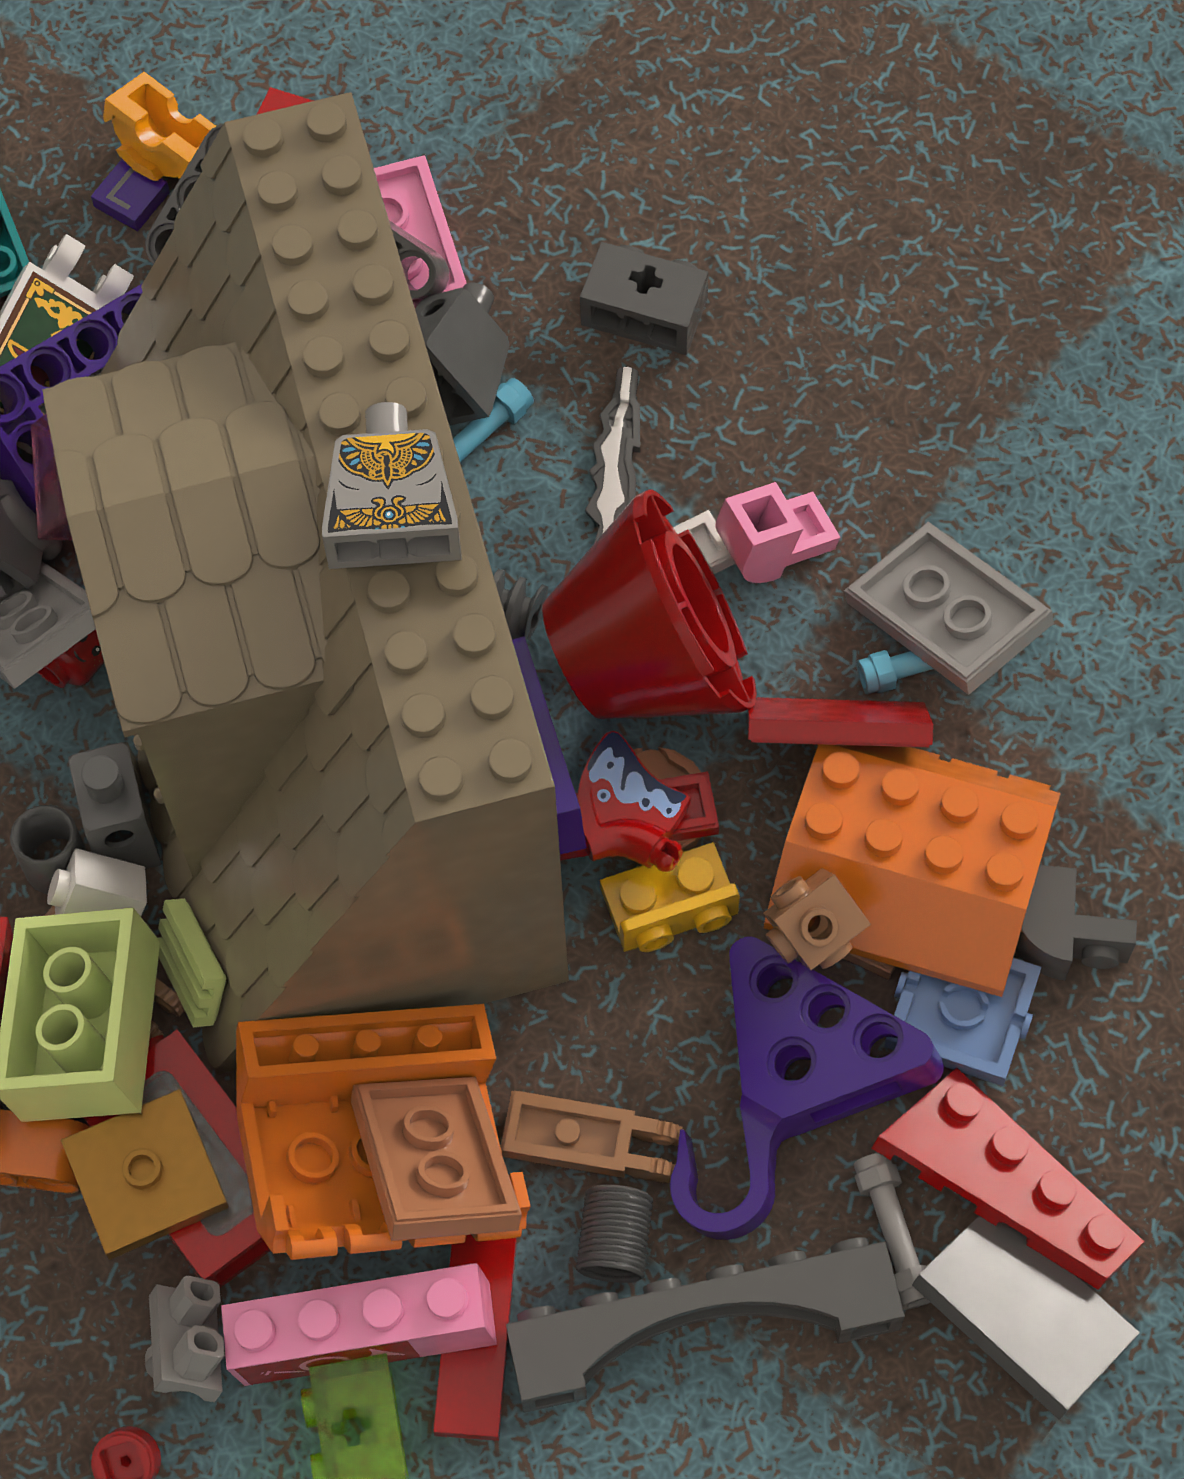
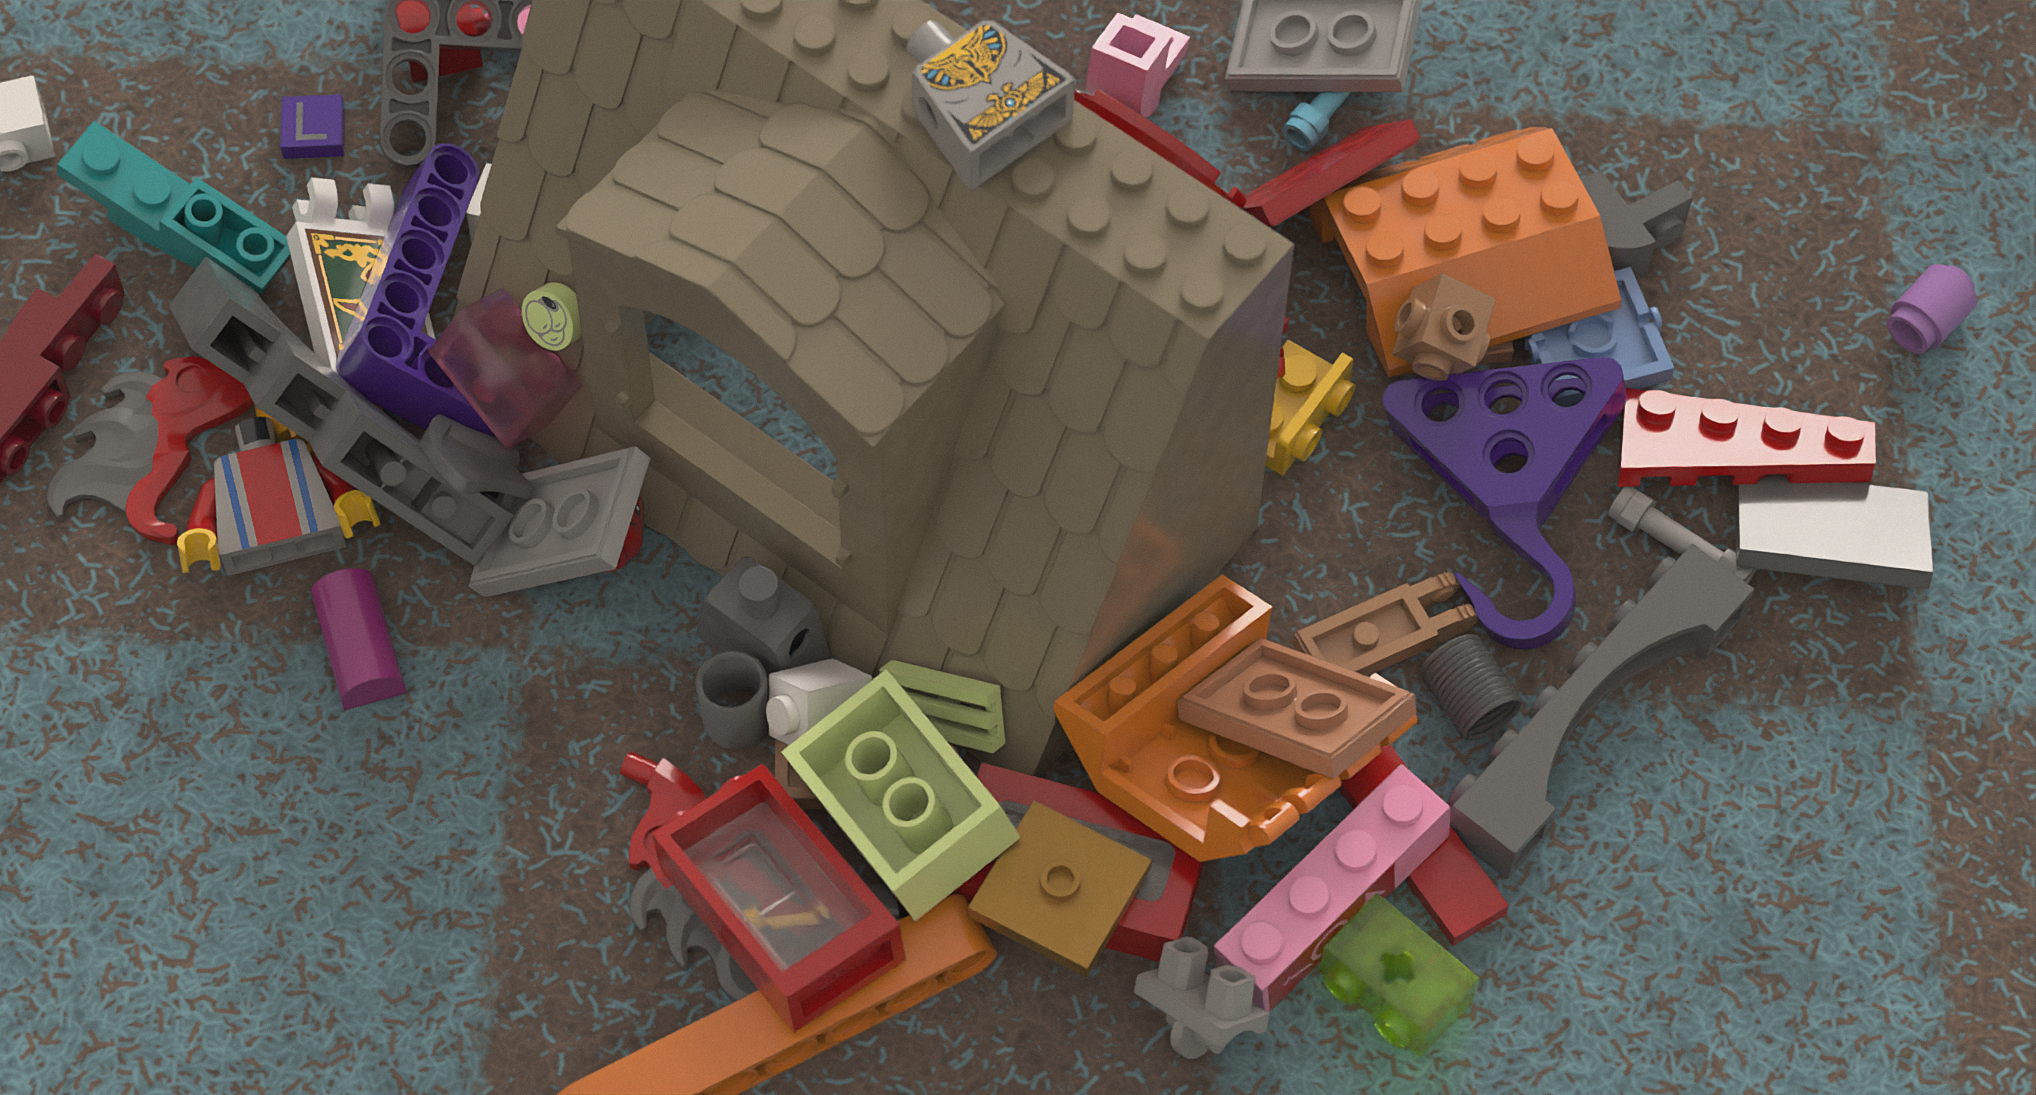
camera: 40 degrees left, 5 degrees down
(152, 130) = (309, 60): light orange cylinder -> none

